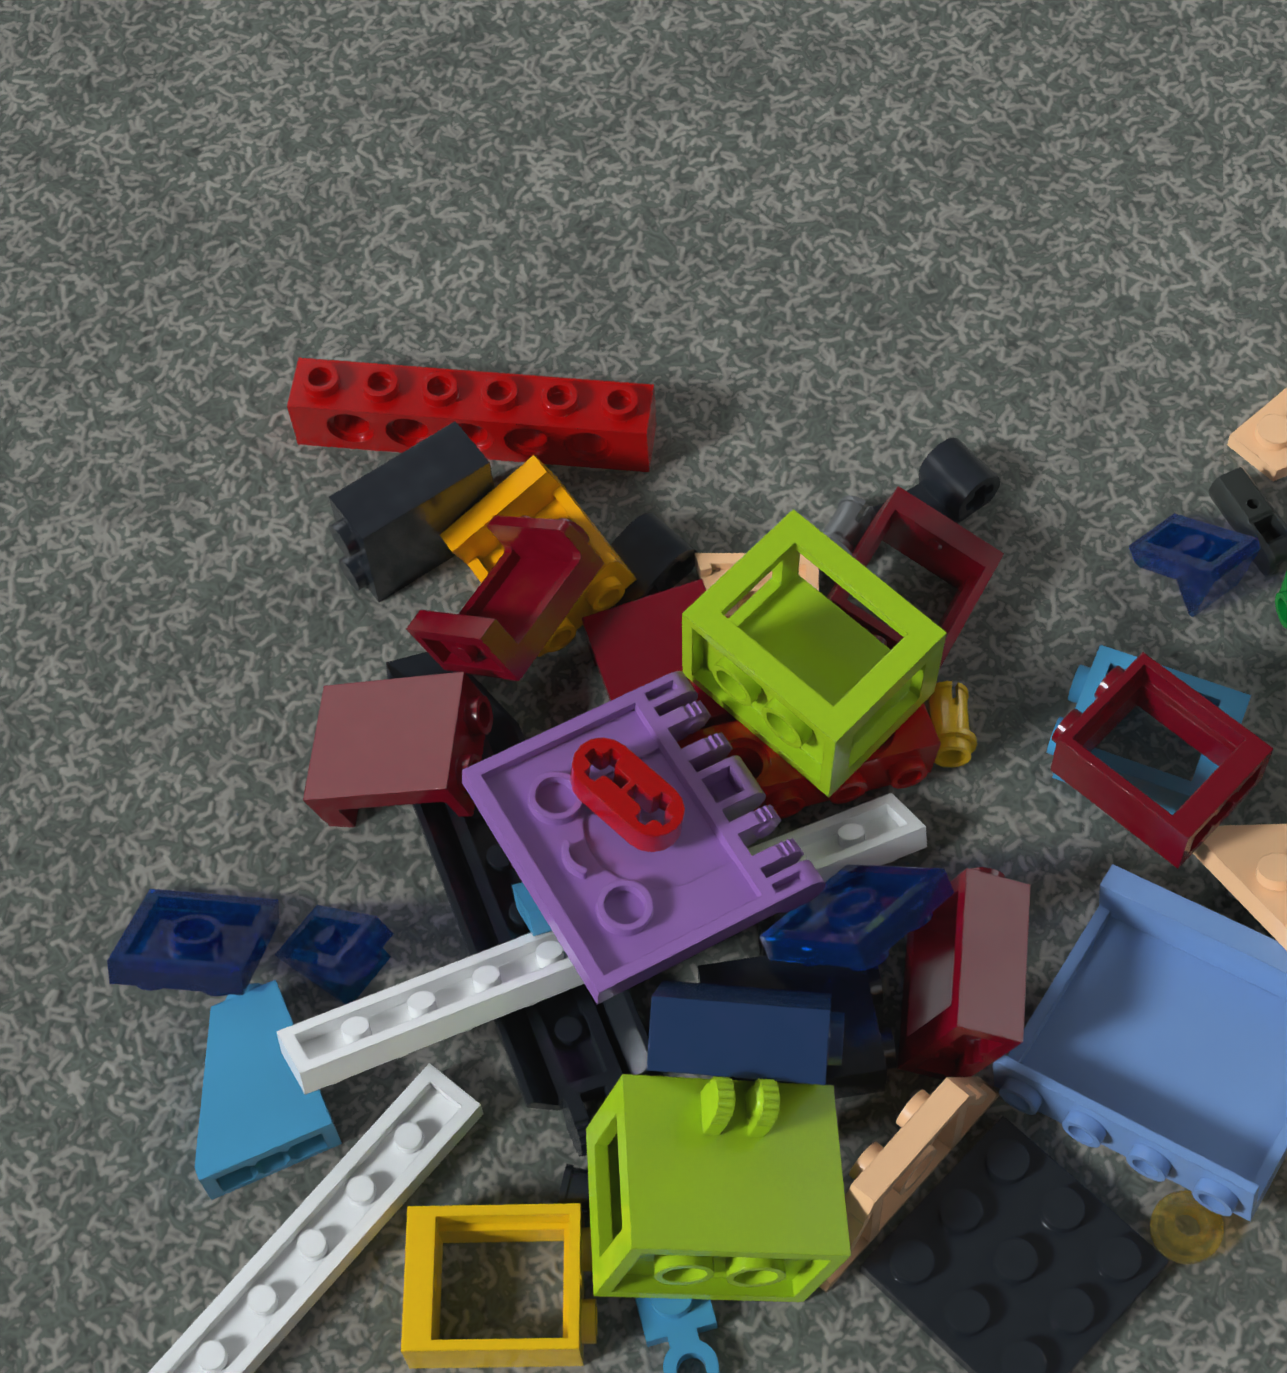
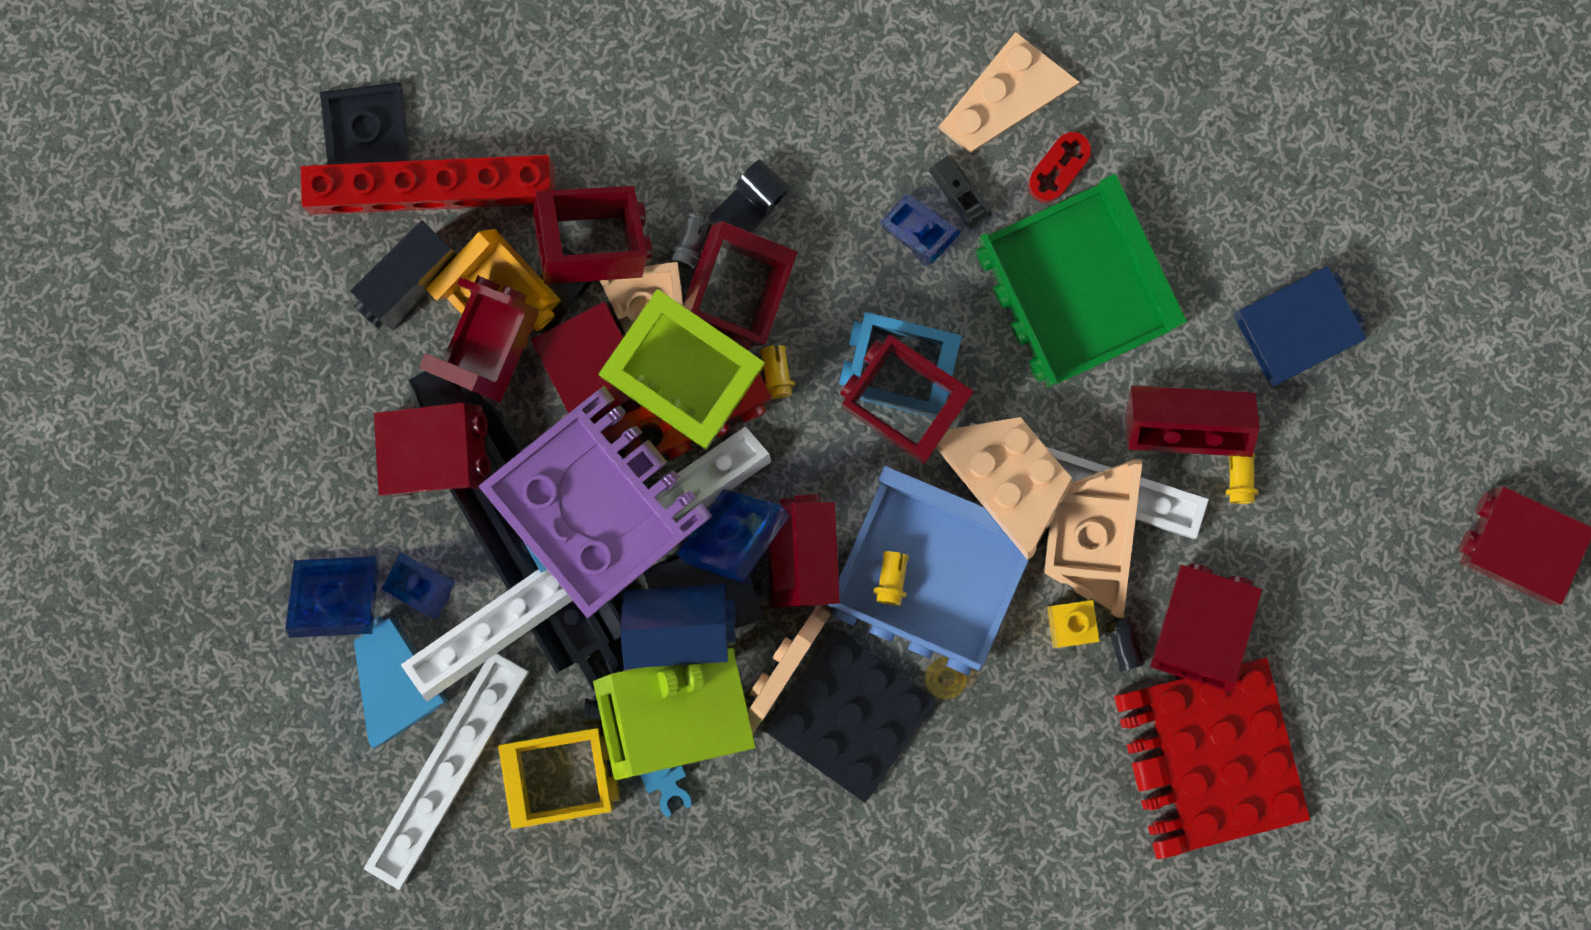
camera: 10 degrees left, 25 degrees up
(403, 331) = (365, 124): none -> black tile
(632, 788) = (577, 496): red beam -> none
(697, 463) = (590, 204): none -> dark red window
(1104, 1059) = (892, 578): none -> yellow pin

